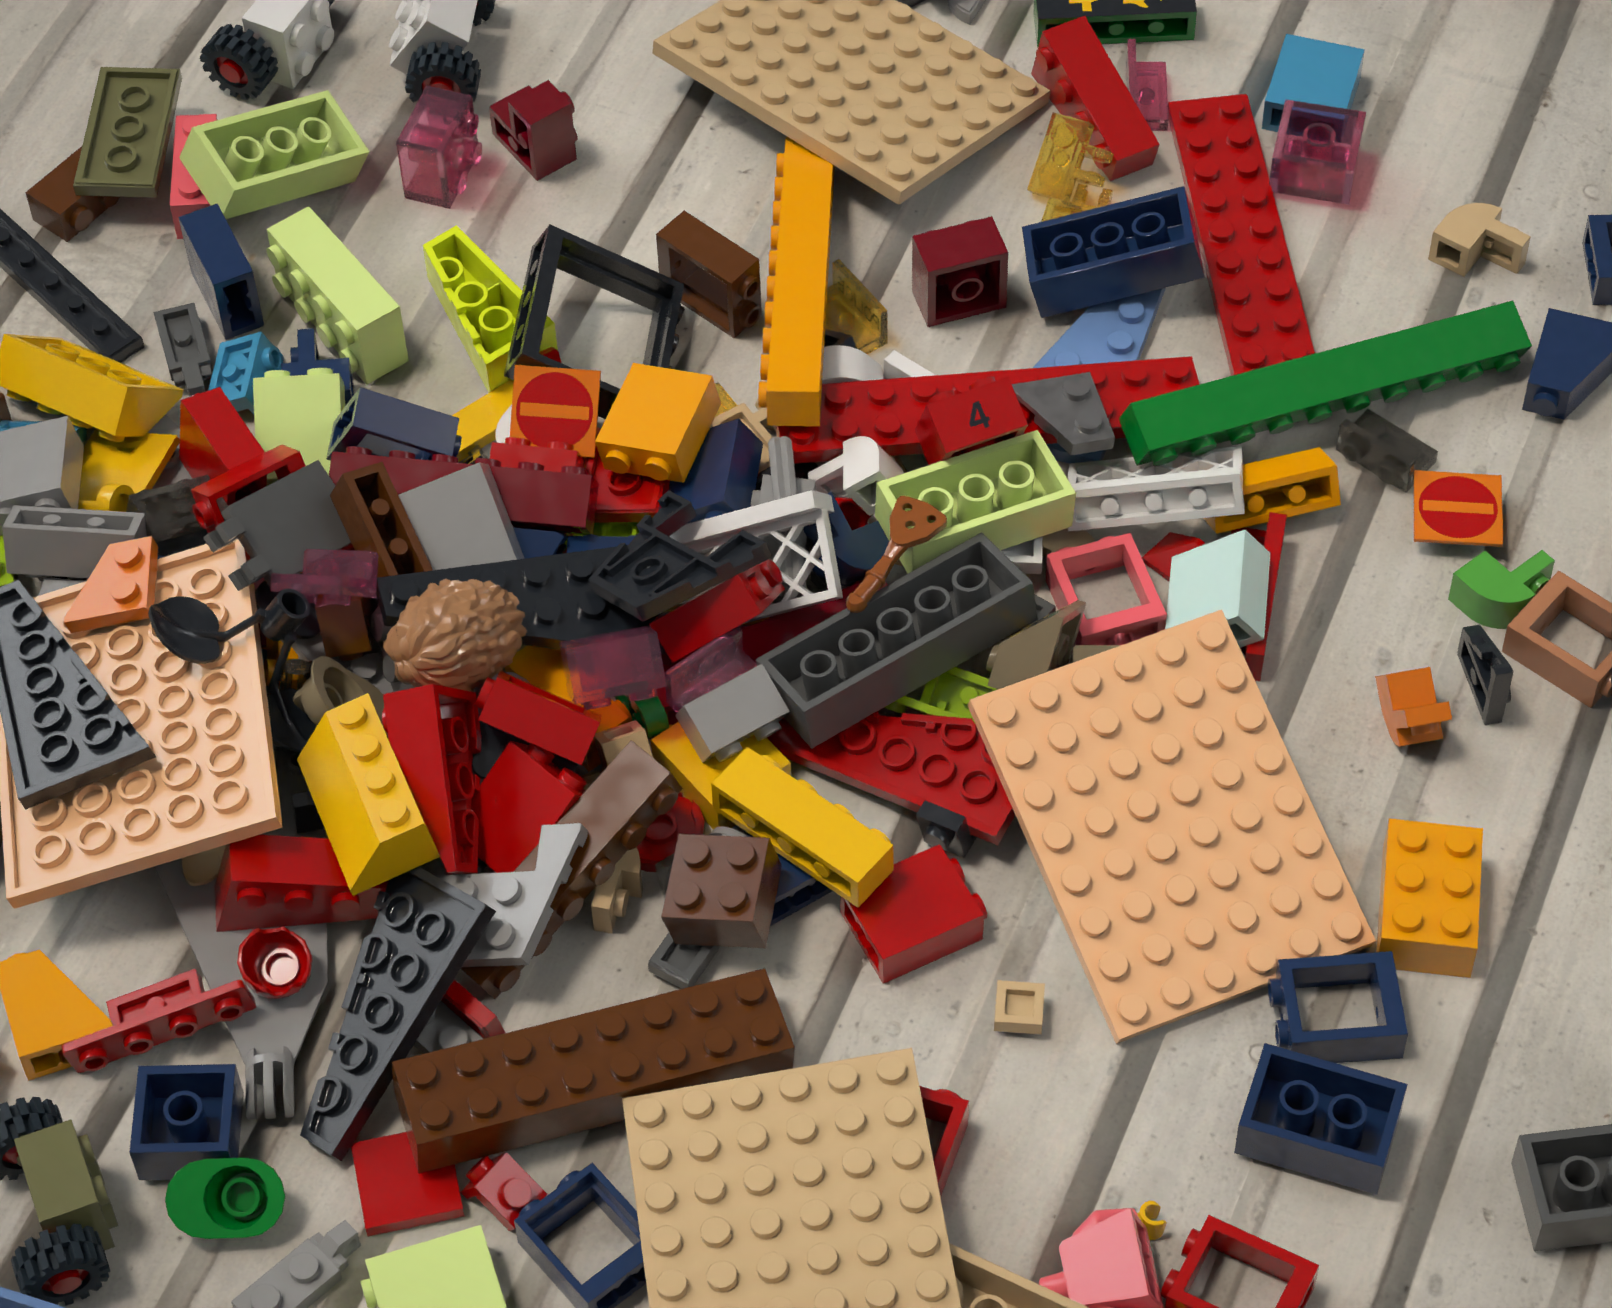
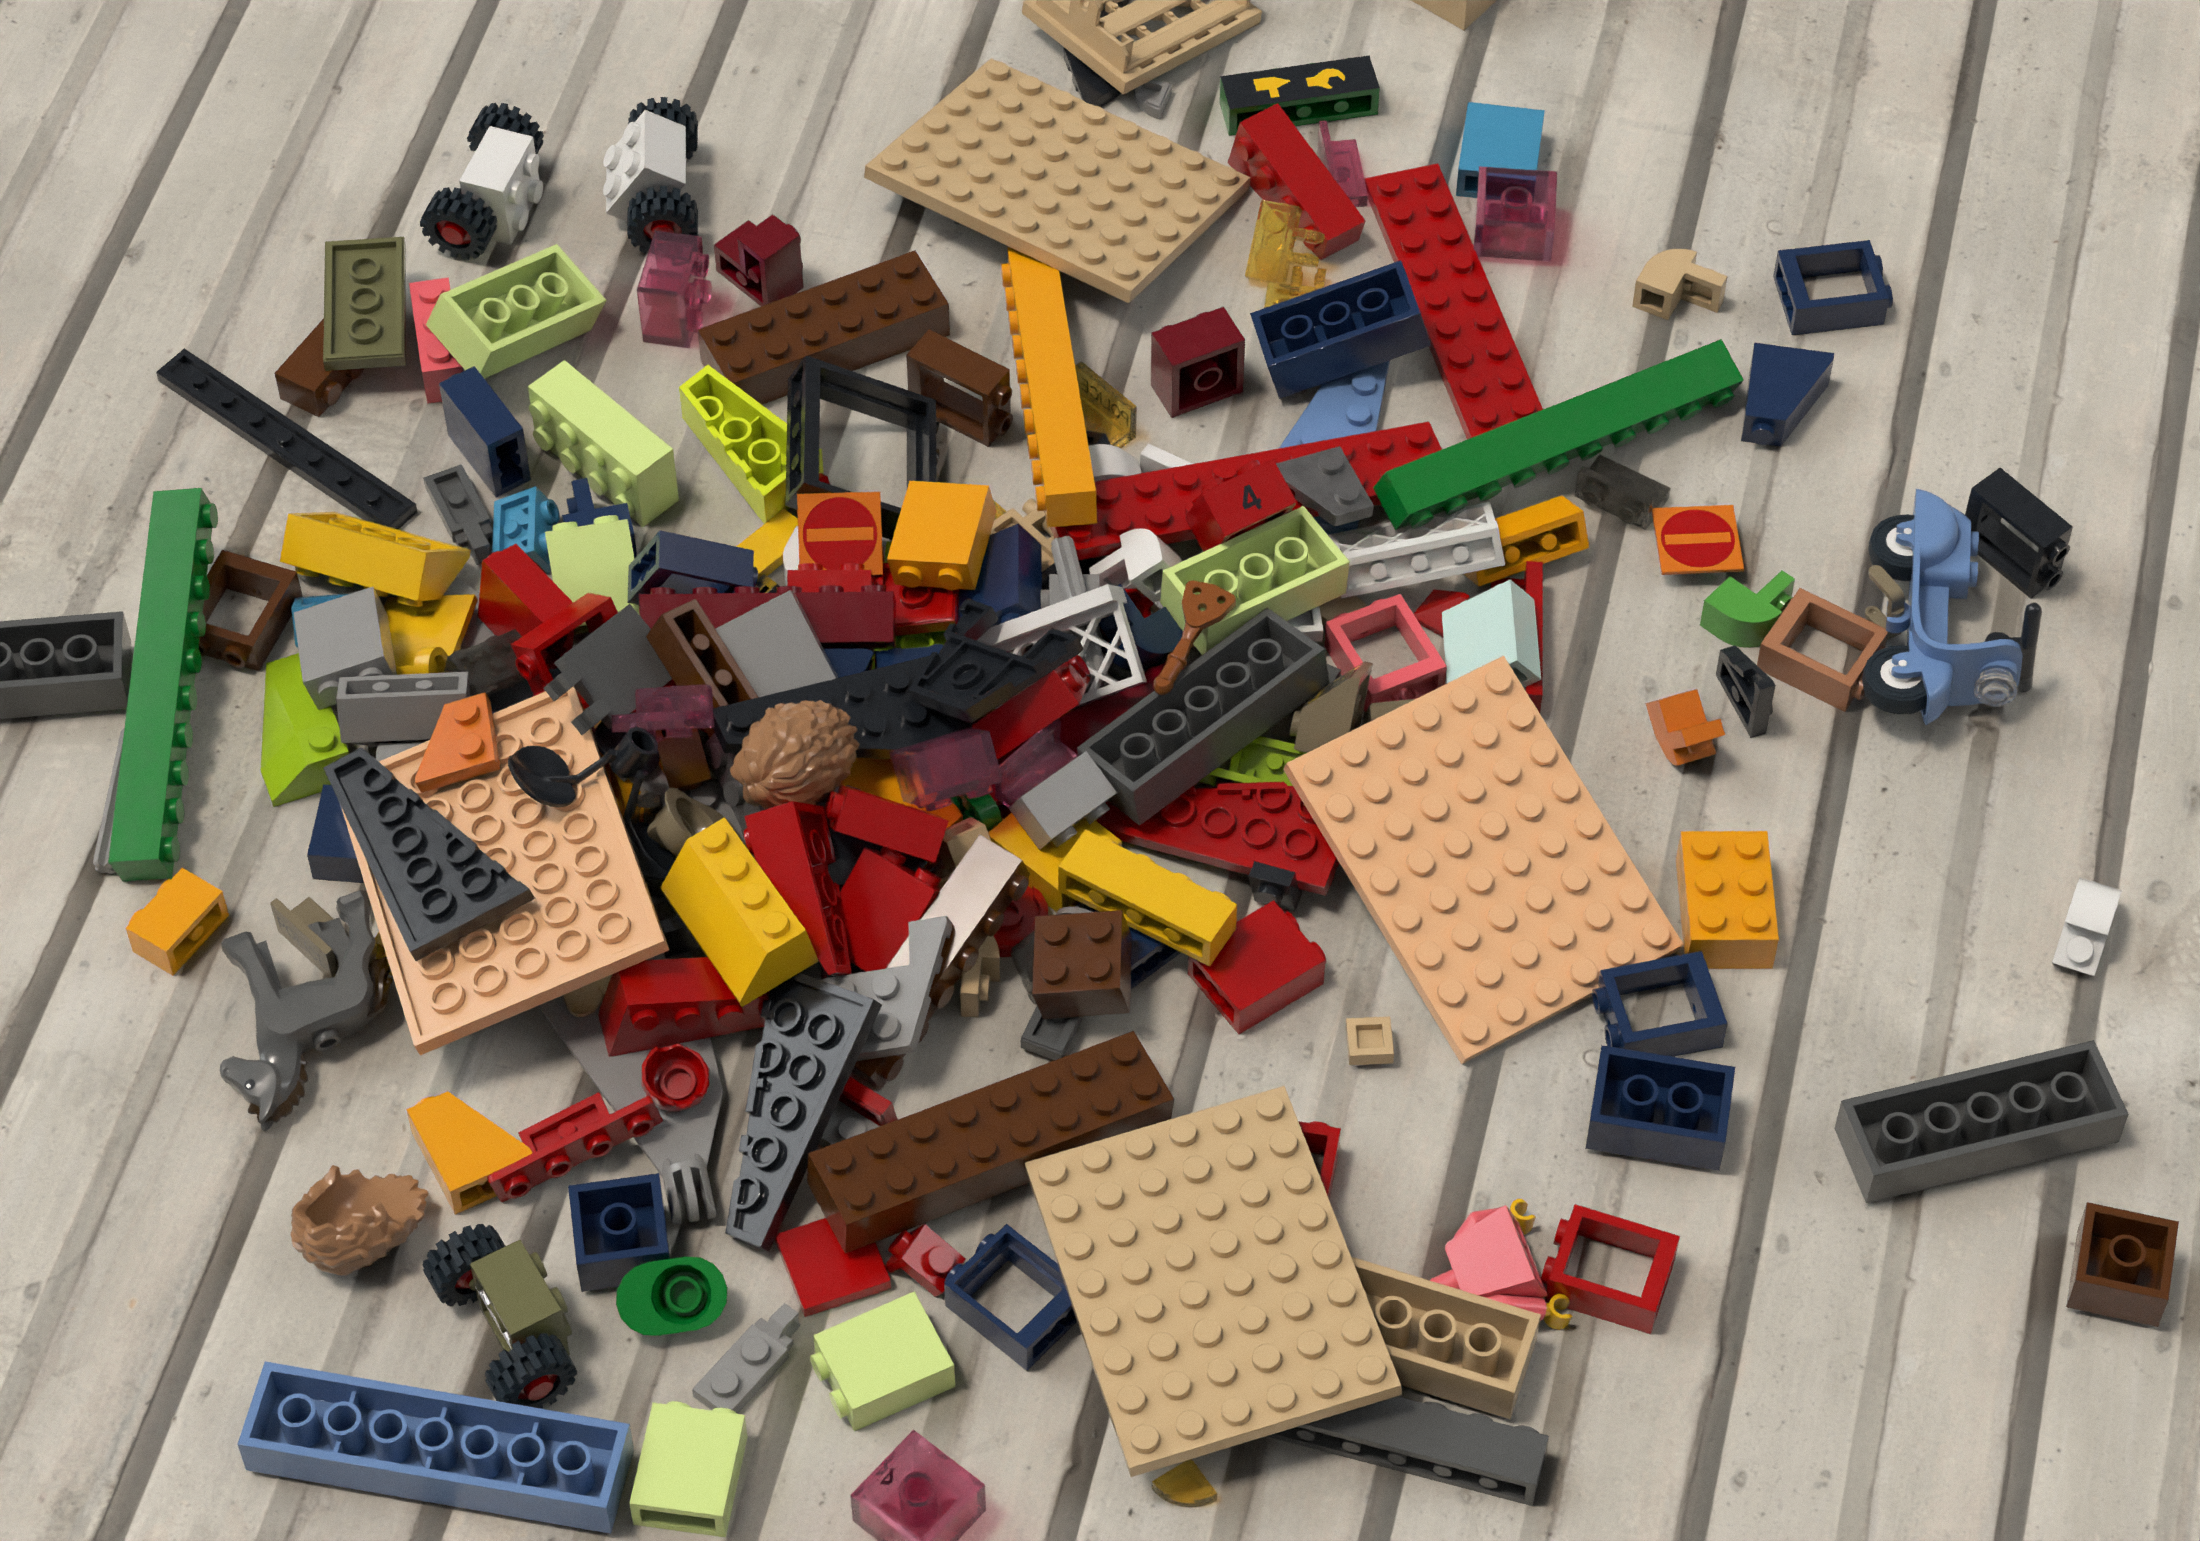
camera: 10 degrees left, 0 degrees up
(597, 197) = (837, 322): none -> reddish brown brick

